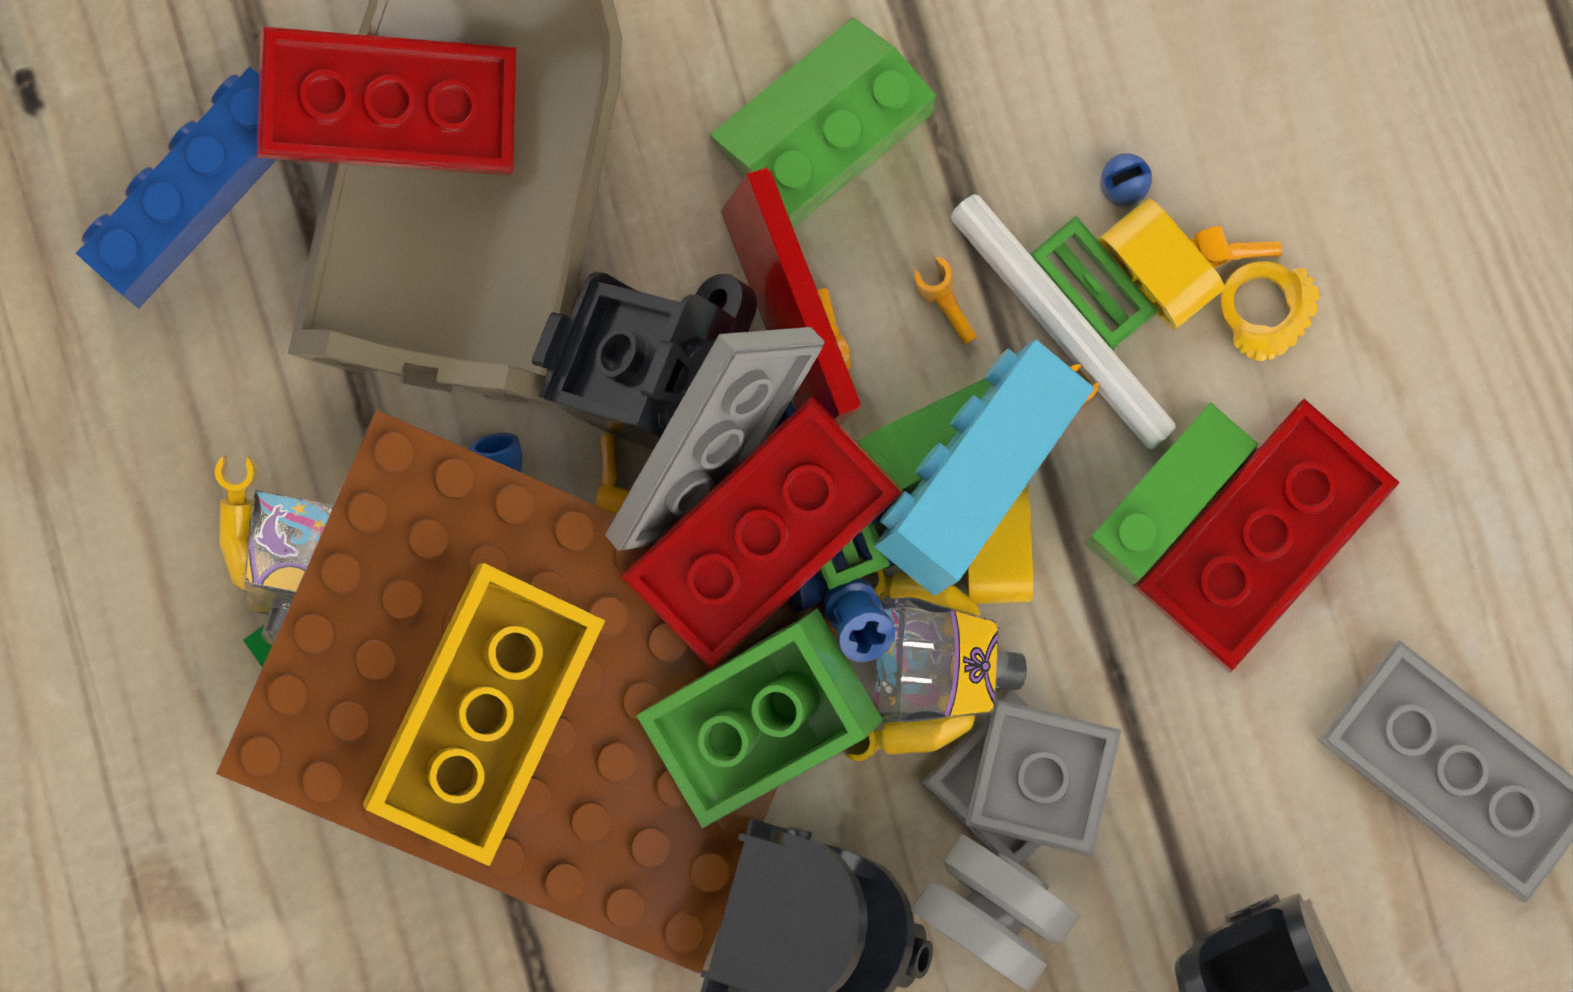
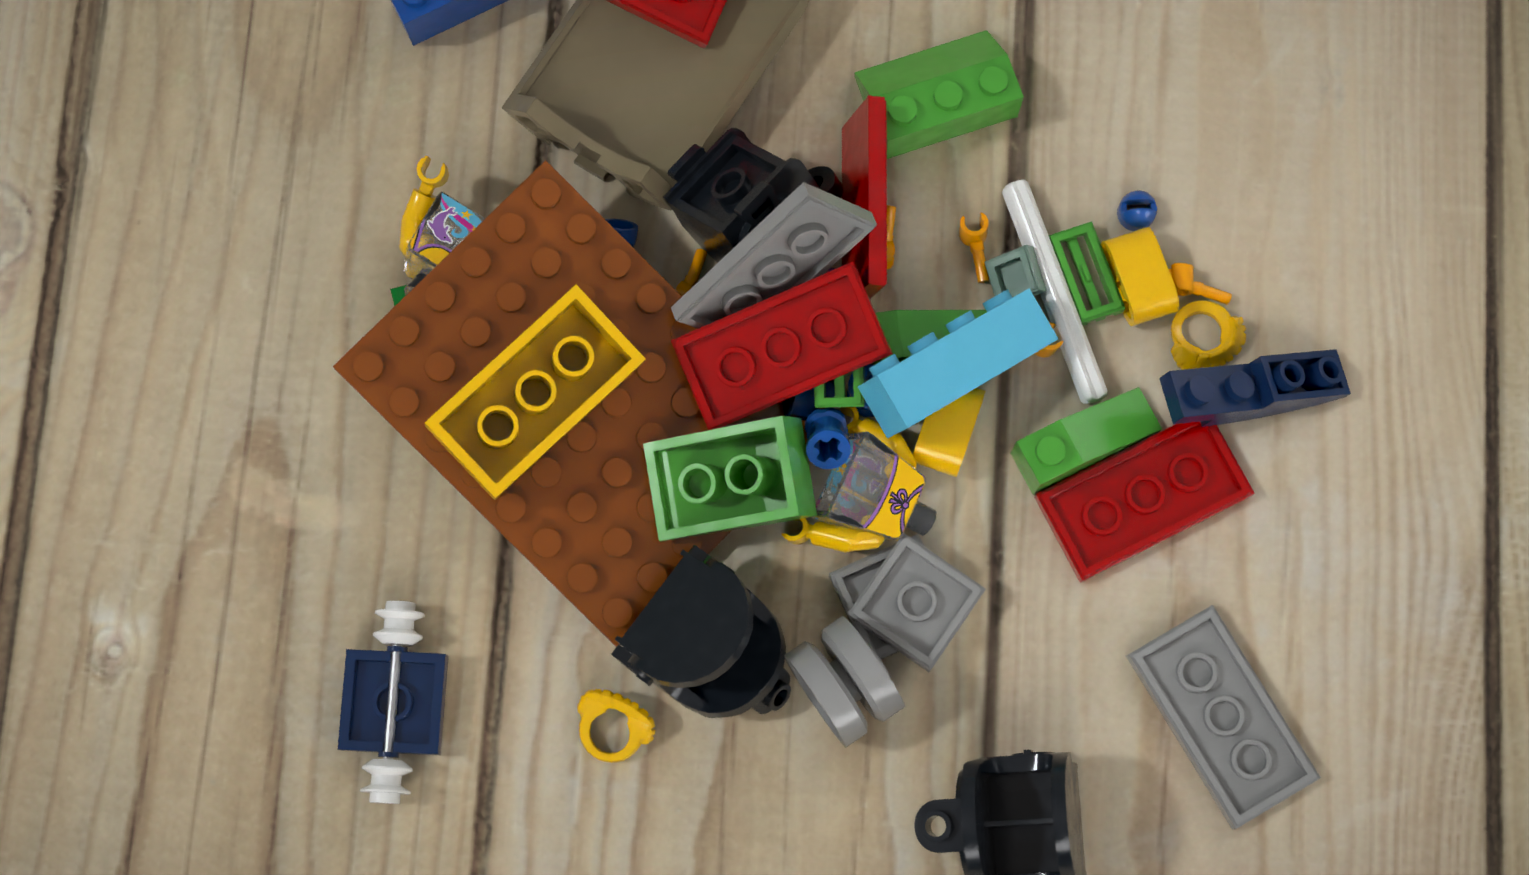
camera: 20 degrees right, 5 degrees down
(1008, 319) = (1016, 272): none -> sand green tile
(1352, 353) = (1254, 389): none -> dark blue slope

